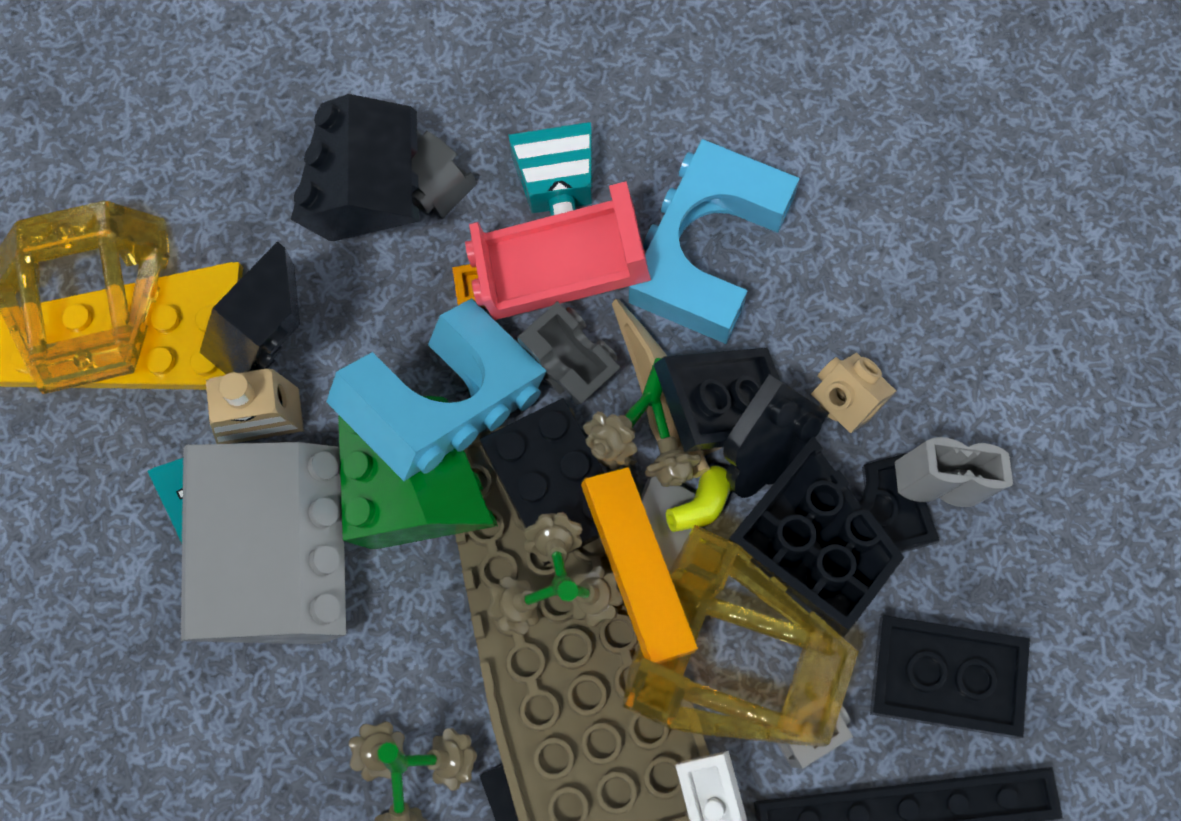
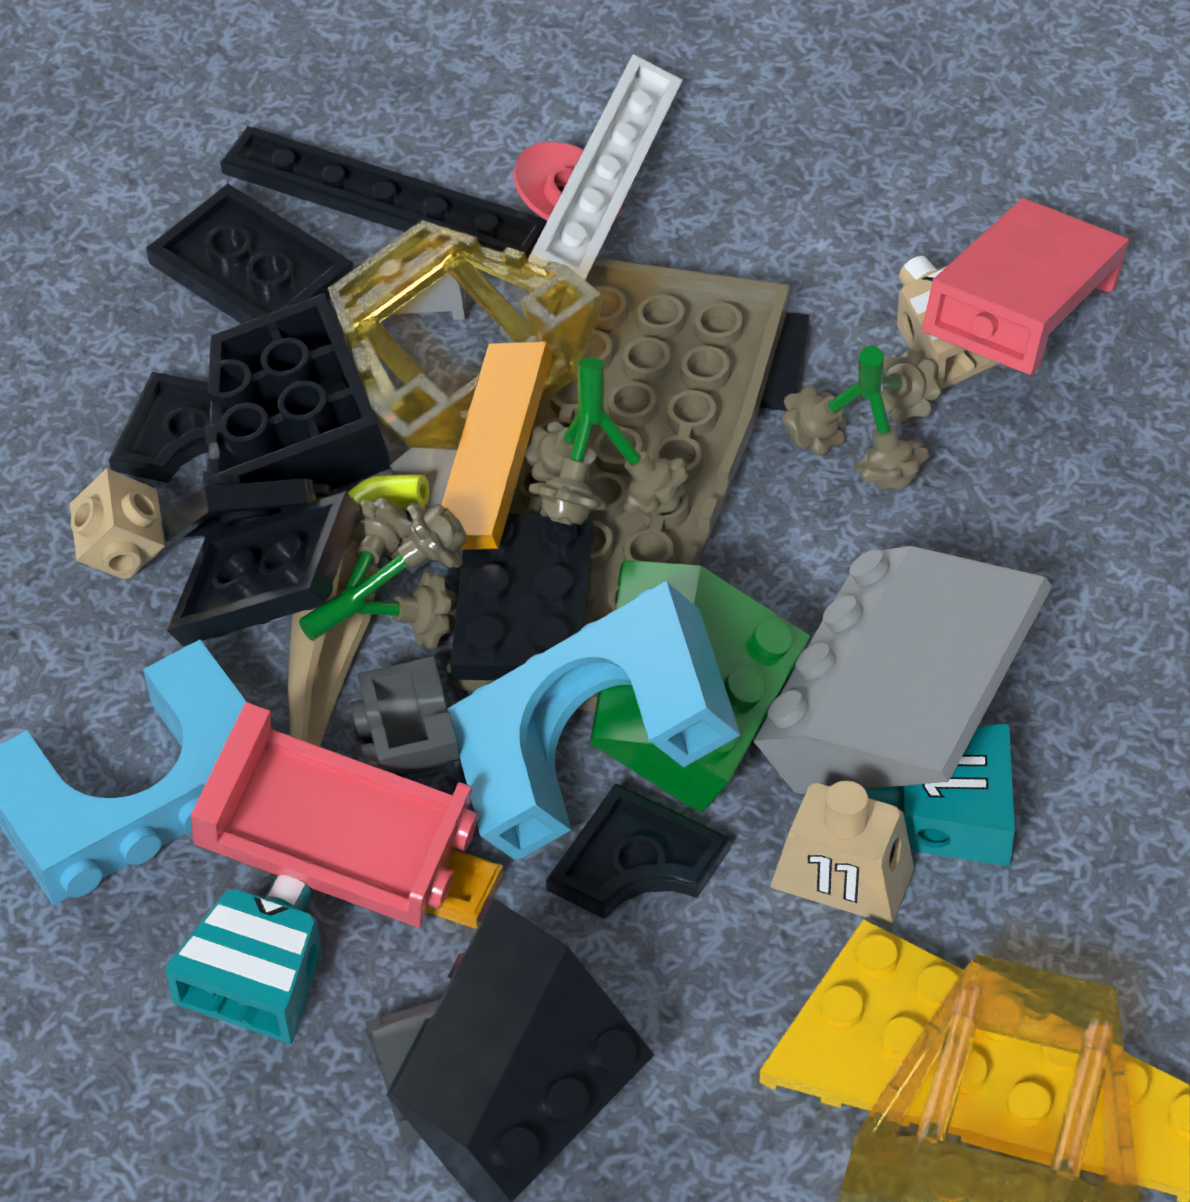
camera: 150 degrees left, 20 degrees down
(254, 316) = (764, 907): black wedge -> none
(400, 345) = (634, 850): none -> black tile
(953, 472) = (89, 389): light grey brick -> none

